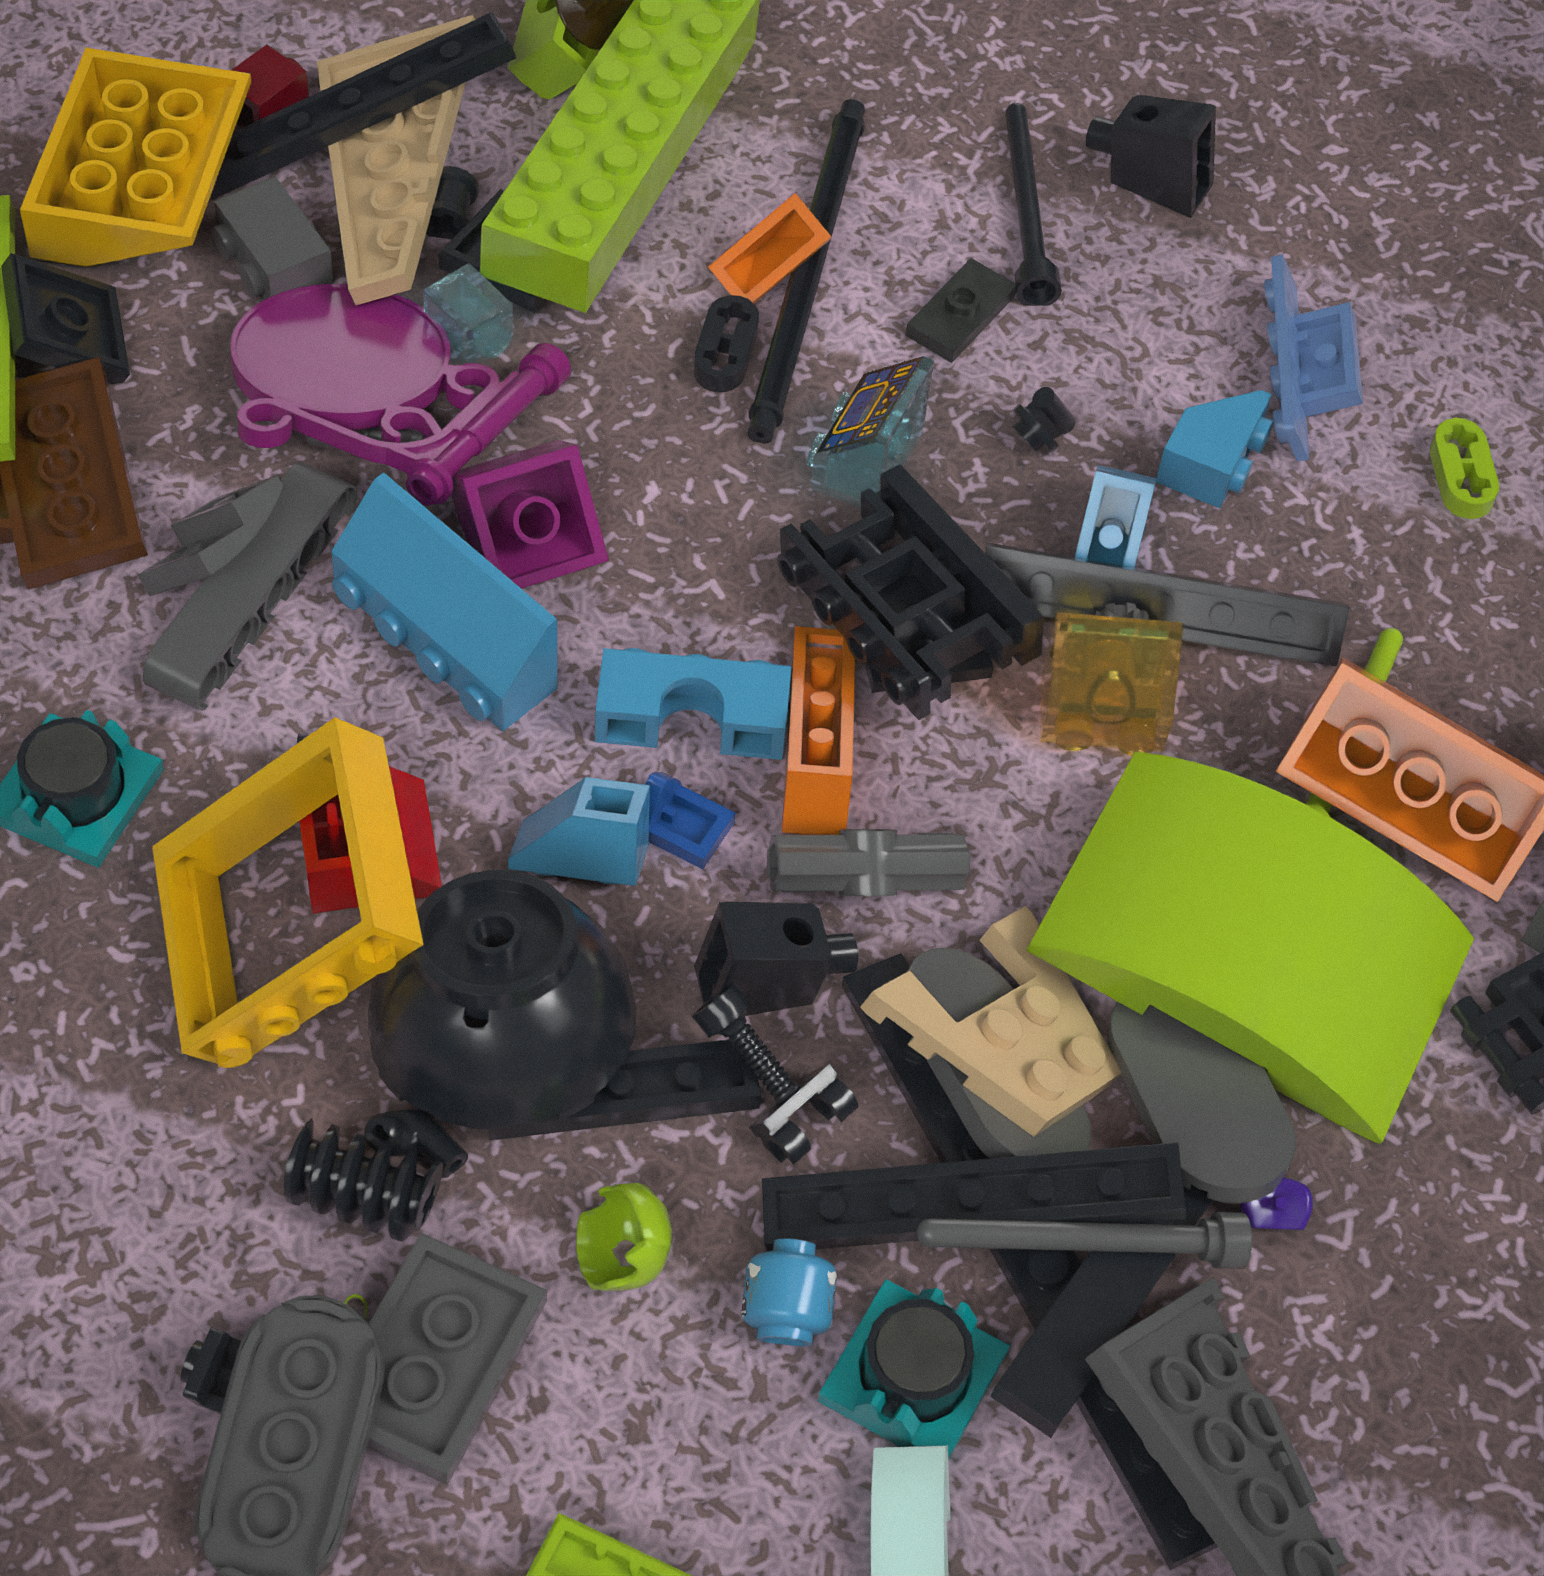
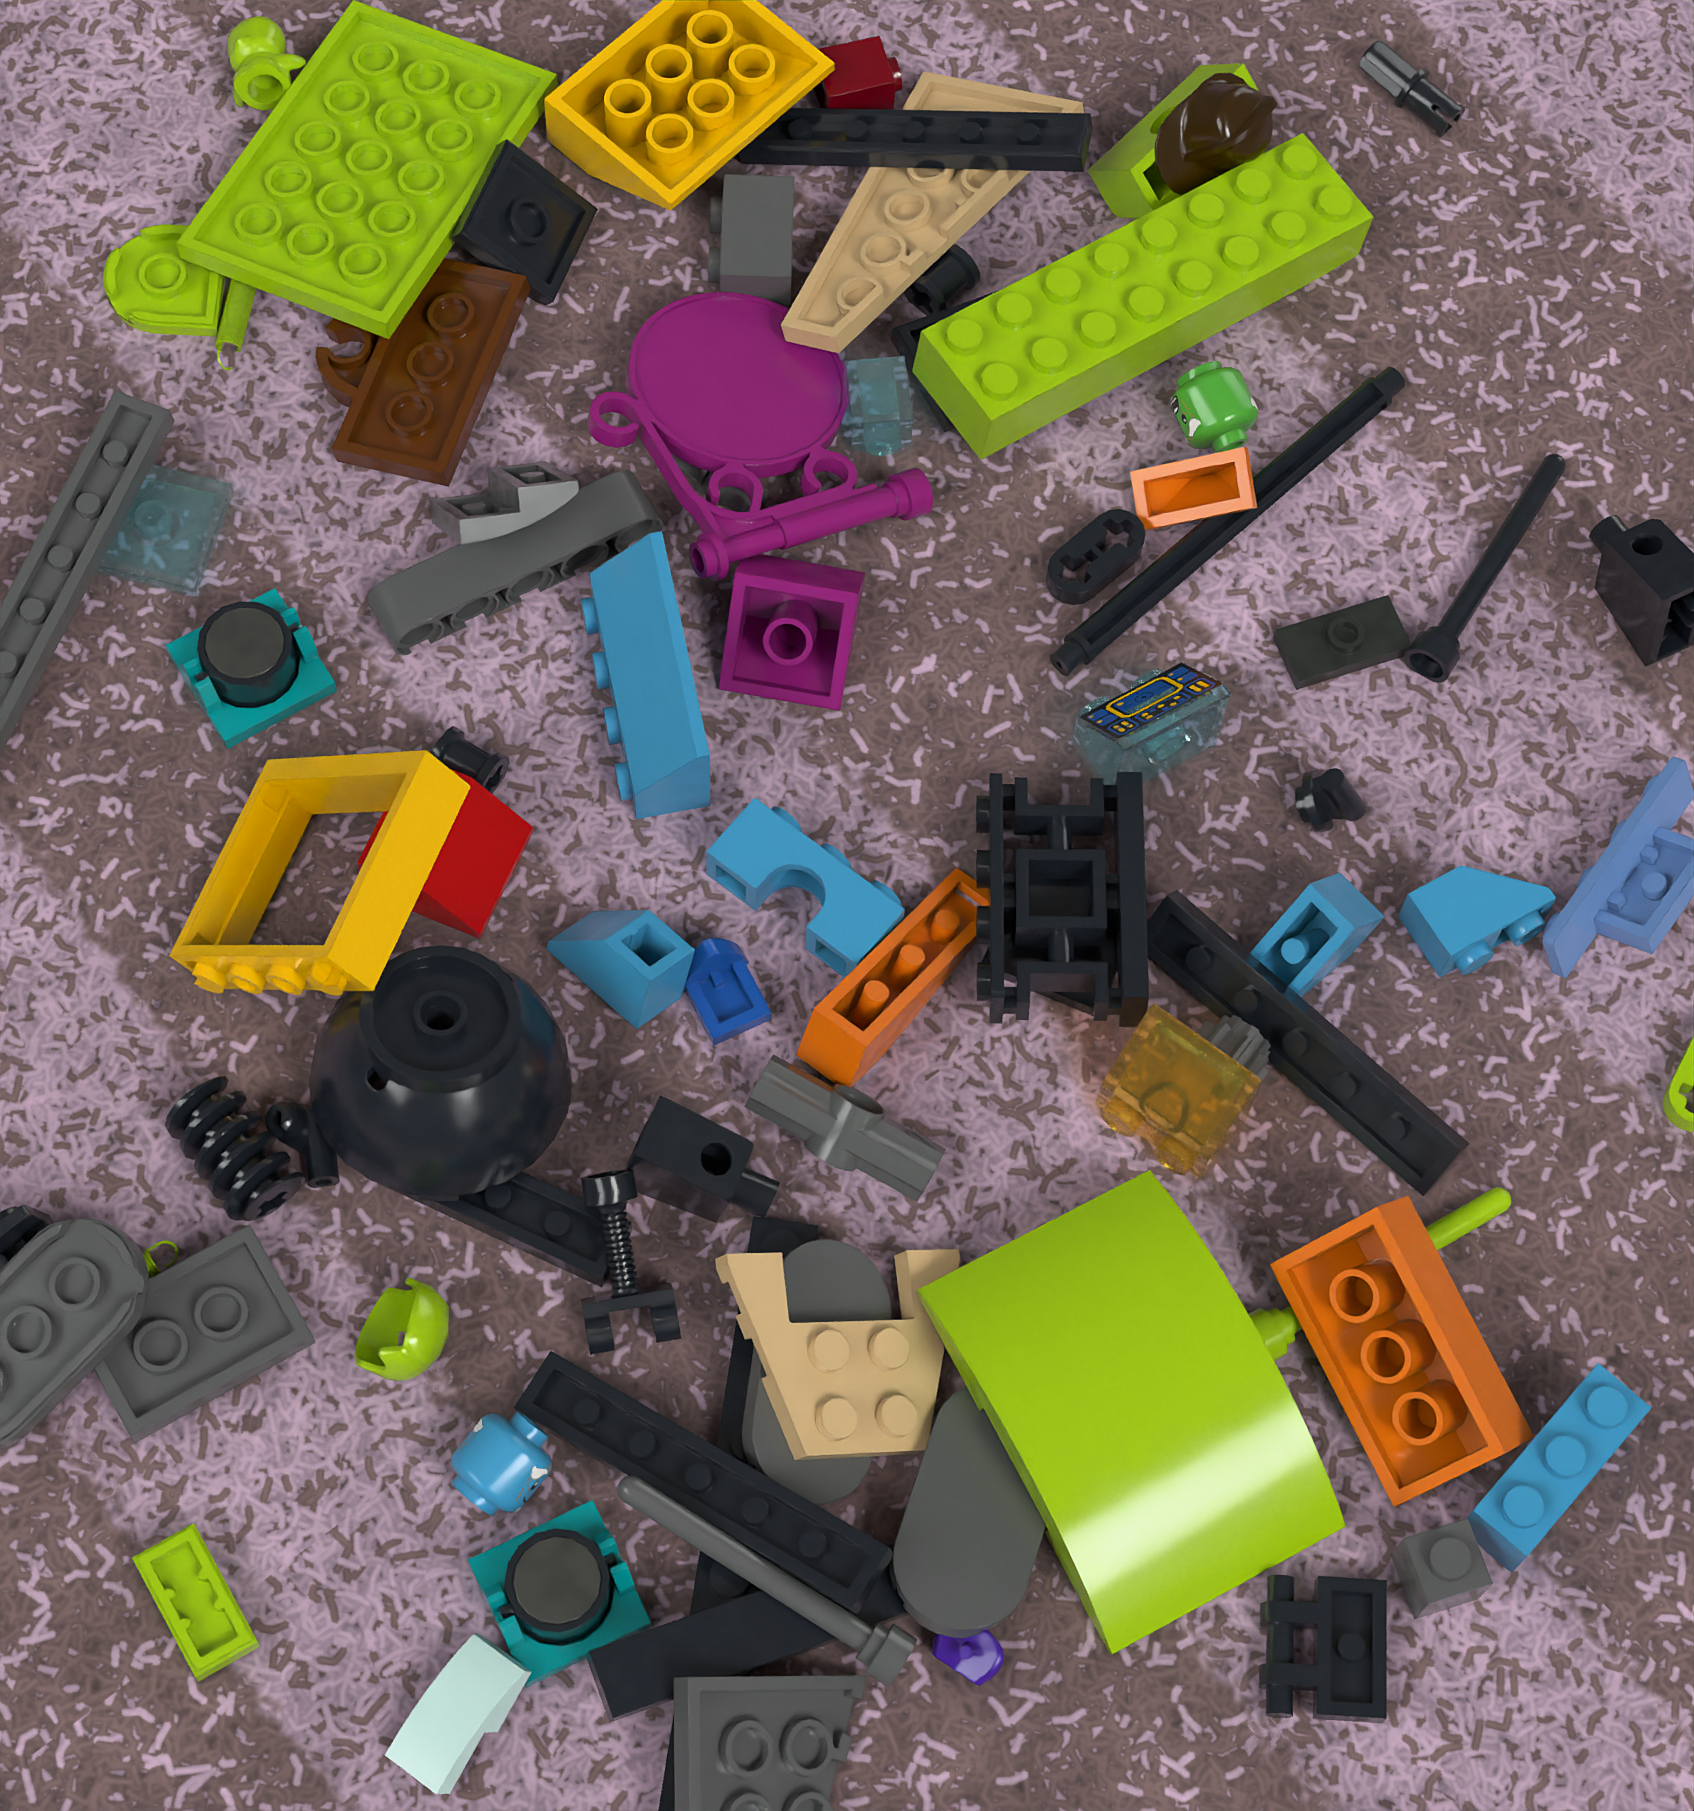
camera: 35 degrees right, 10 degrees up
(736, 189) = (1214, 407): none -> bright green head

